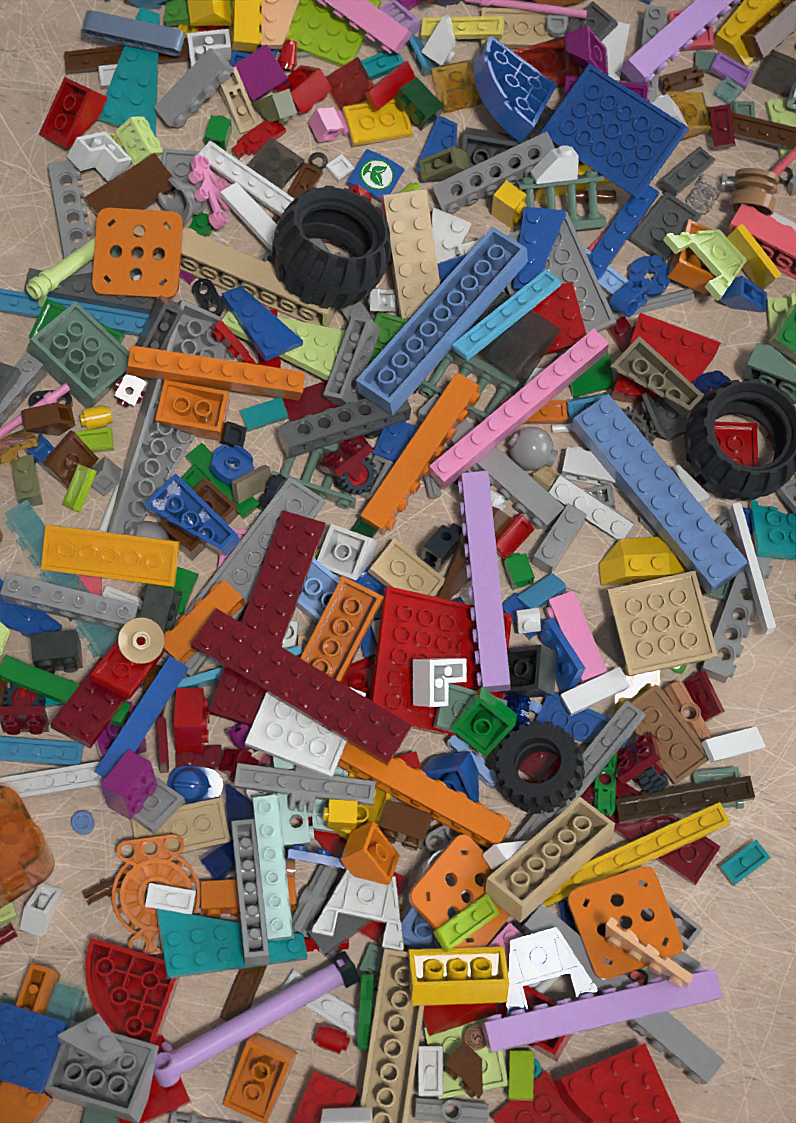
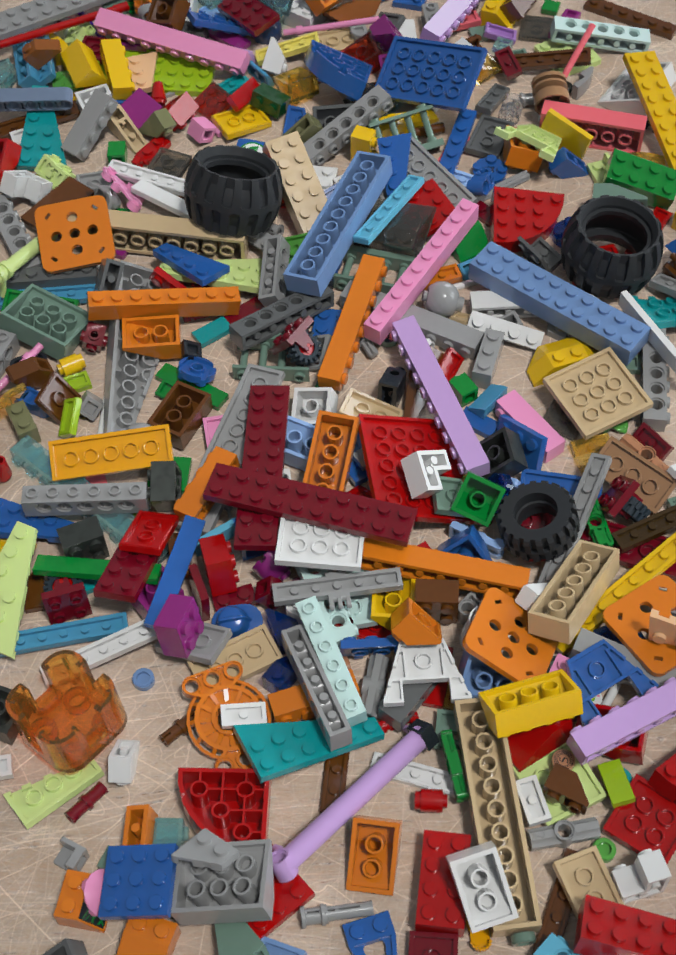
camera: 10 degrees left, 15 degrees down
(141, 628) = (160, 500): tan dish -> none
(189, 513) = (175, 405): blue wedge -> none
(209, 299) = (140, 258): black plate -> none
(251, 483) = (217, 378): dark tan tile -> none
(274, 484) = (237, 373): black plate -> none
(341, 814) = (378, 601): yellow brick -> none
(382, 300) = (284, 226): white plate -> none
(466, 922) = (521, 657): lime tile -> none
(528, 620) = (485, 420): white plate -> none
(556, 166) = (394, 103): white slope -> none
(595, 691) = (560, 458): white tile -> none
(652, 371) = (528, 219): dark tan wedge -> none

